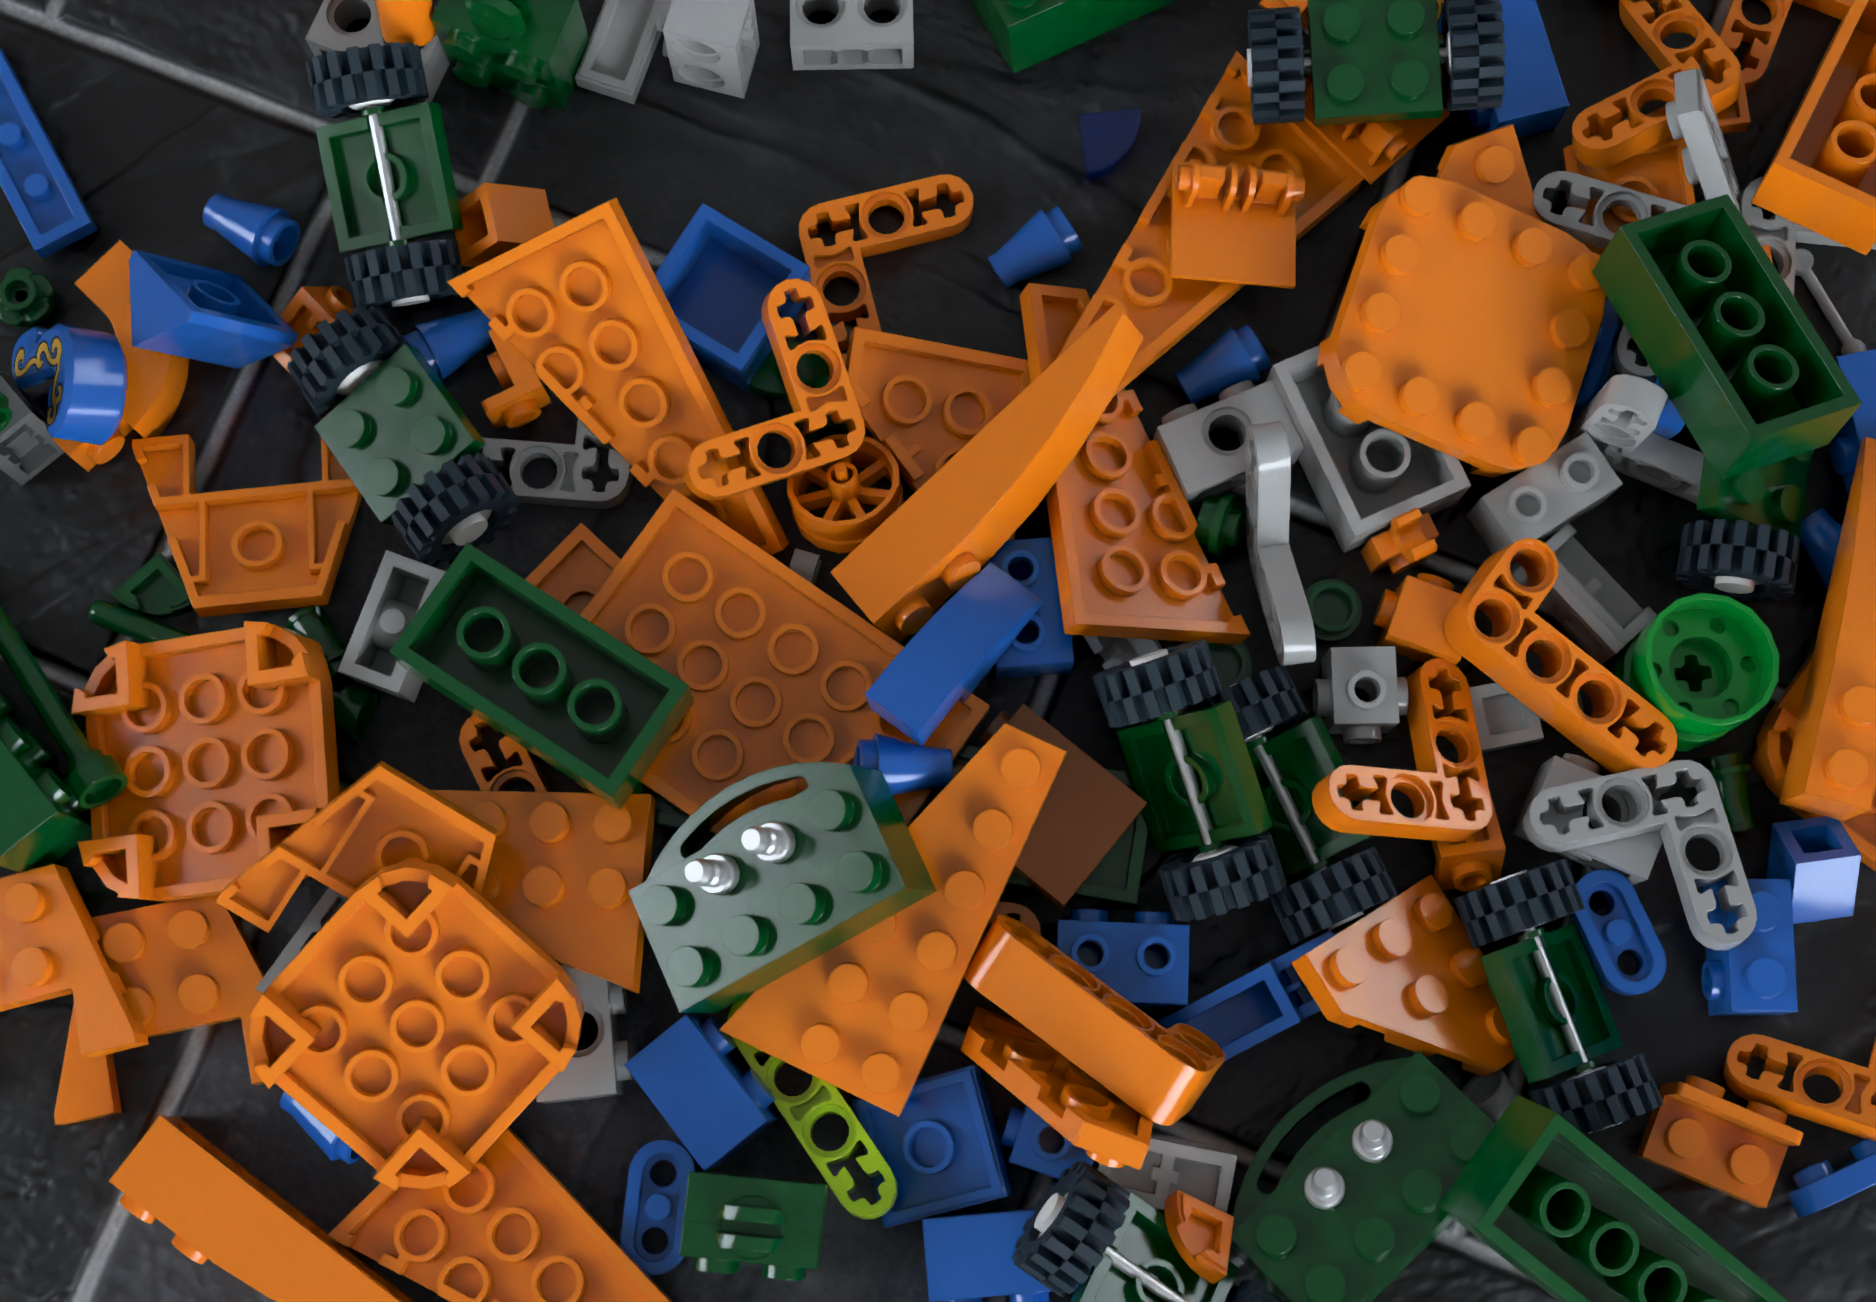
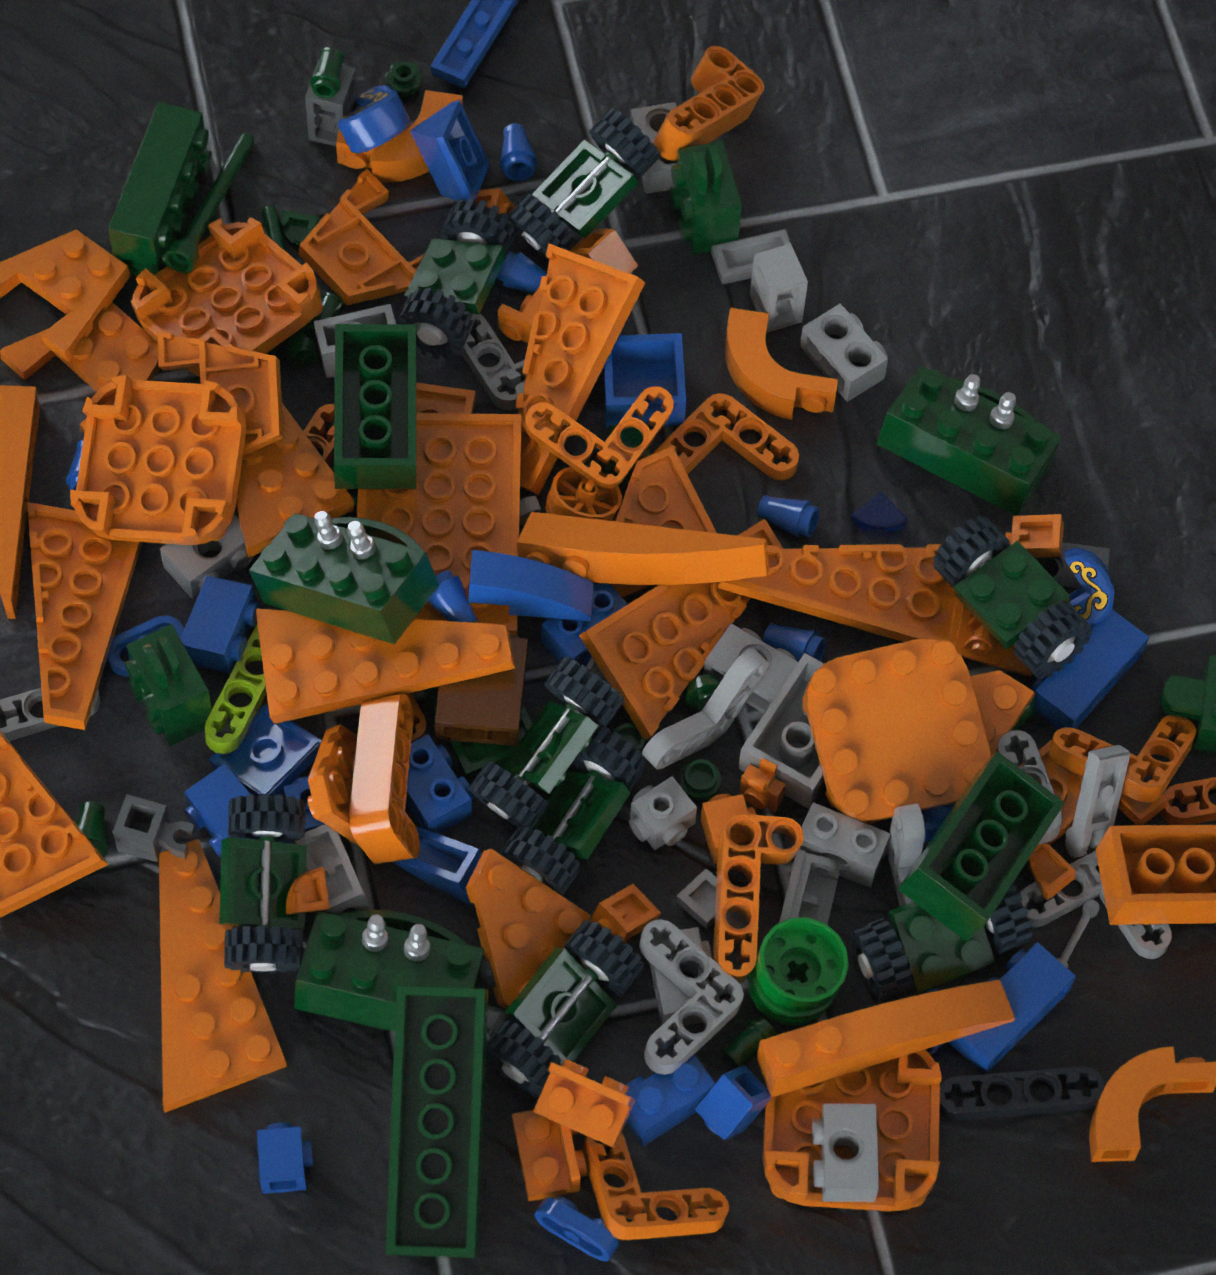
camera: 55 degrees right, 15 degrees down
(809, 148) = (763, 379): none -> orange arch
(1234, 224) = (870, 590): orange hinge -> none
(1434, 781) = (628, 869): orange beam -> none
(1619, 930) = (626, 1030): blue plate -> none
(1725, 1064) = (585, 1104): none -> orange bracket

